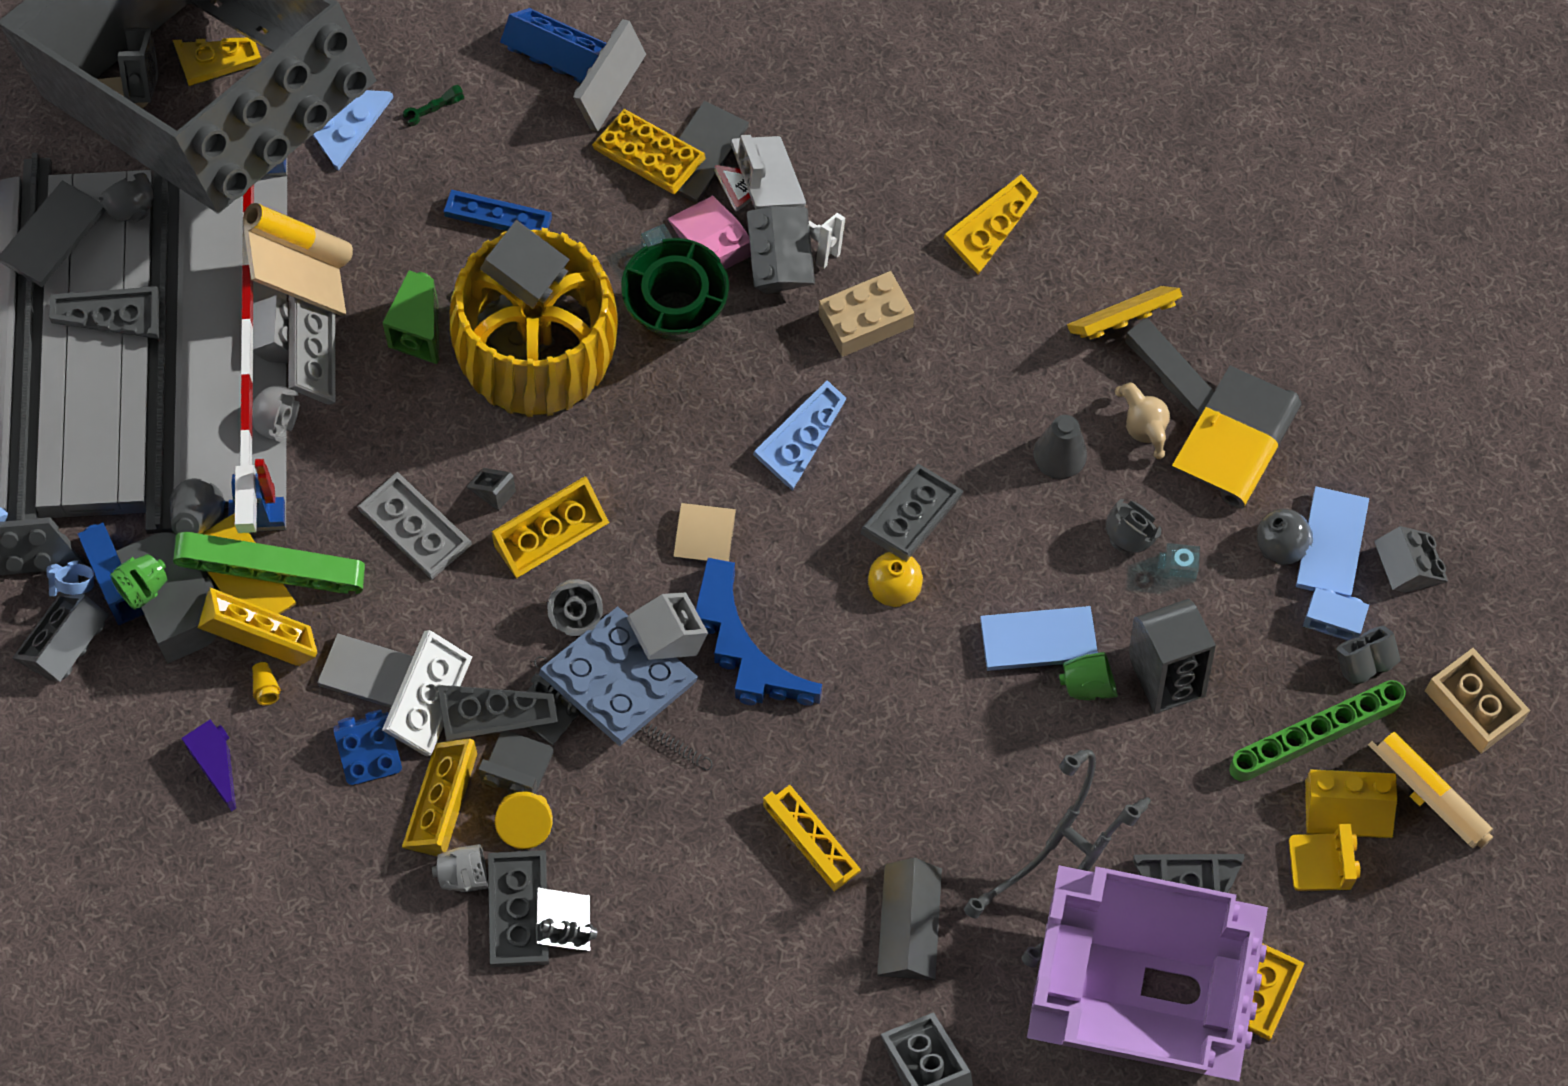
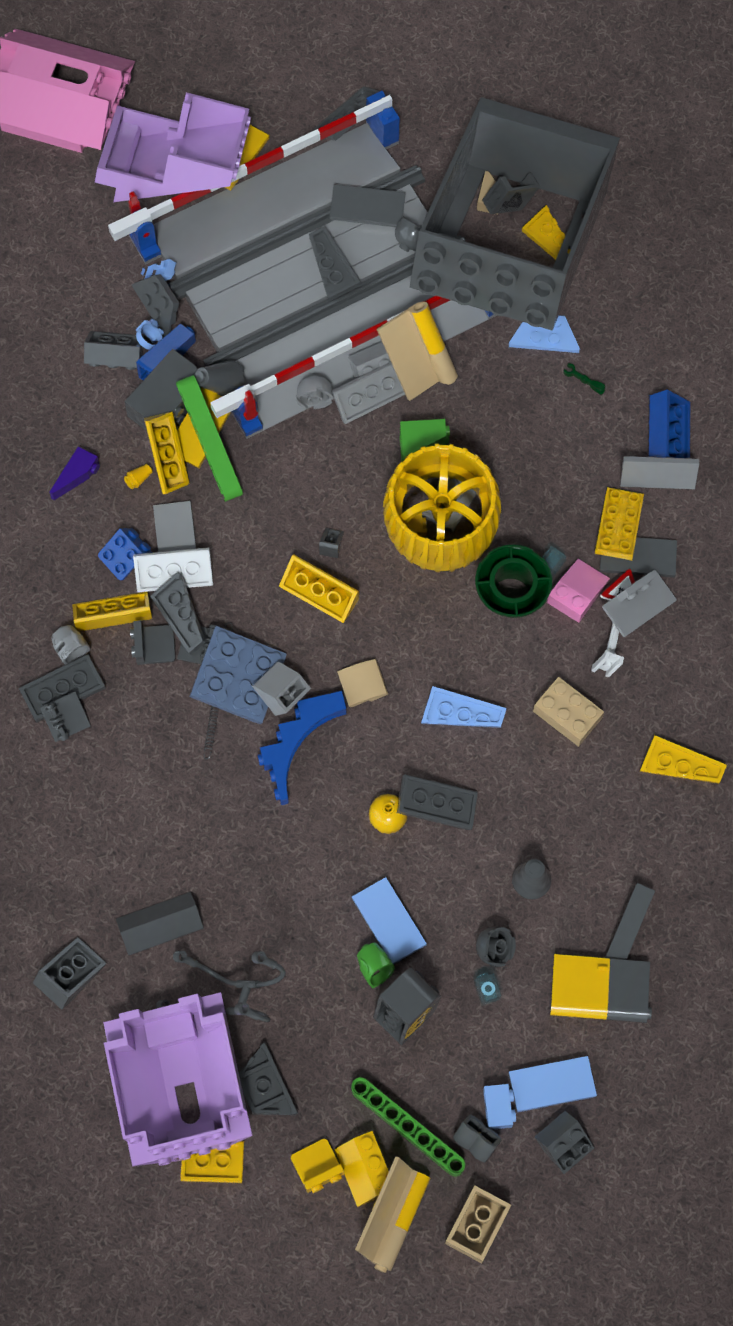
camera: 65 degrees right, 5 degrees up
(139, 580) = (153, 369): bright green helmet -> none
(414, 525) = (284, 510): light grey tile -> none
(494, 212) = (525, 455): blue plate -> none
(523, 820) = (117, 664): yellow tile -> none
(525, 265) = (458, 479): dark grey brick -> none
(575, 607) = (269, 627): light grey cylinder -> none
(780, 248) = (584, 635): dark grey slope -> none
(806, 841) = (181, 833): yellow fence -> none
(1118, 314) = (658, 879): yellow tile -> none
(1146, 417) = (582, 923): tan piece -> none
(1284, 536) = (539, 1049): dark grey cylinder -> none

